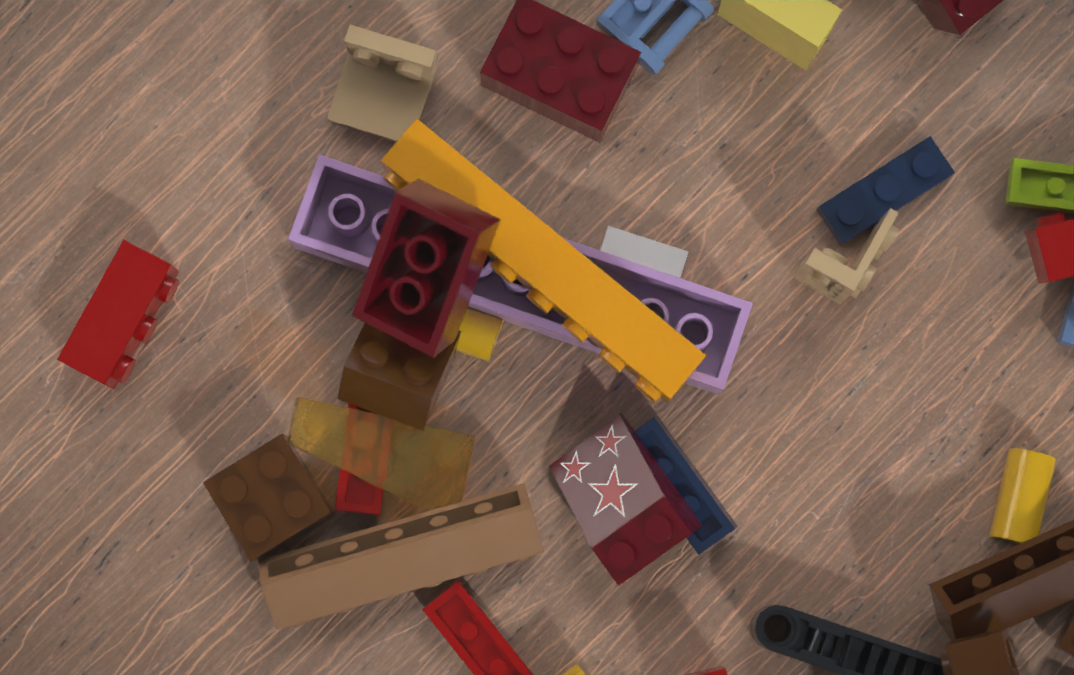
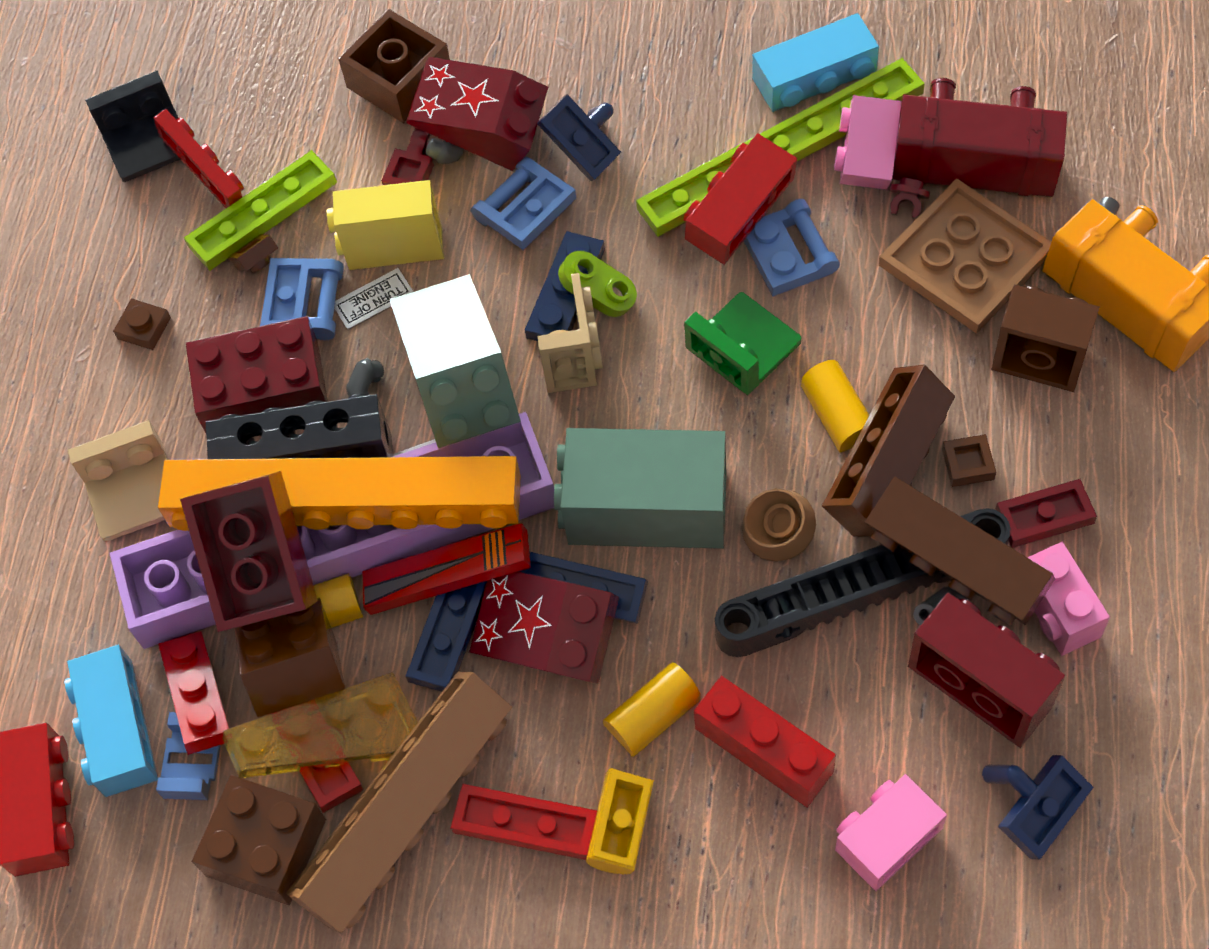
camera: 30 degrees left, 20 degrees down
(224, 296) = (110, 721): none -> medium azure brick
(250, 391) = (184, 779): none -> medium blue piece
(305, 328) = (194, 692): none -> red plate
(550, 432) = (445, 637): none -> dark blue plate
(555, 200) = (363, 437): none -> black brick
(581, 387) = (446, 569): none -> red tile
(640, 143) = (362, 376): none -> dark grey arm
(655, 636) = (653, 708): none -> yellow brick
(716, 61) = (371, 298): none -> white sticker
(730, 208) = (455, 361): none -> brick
(798, 449) = (642, 487): none -> sand green brick
(898, 564) = (785, 514): none -> medium nougat hat
(916, 216) = (601, 280): none -> lime plate
(918, 88) = (531, 210): none -> medium blue plate
(993, 371) = (741, 341): none -> green bracket
(1017, 51) = (580, 135): none -> dark blue plate

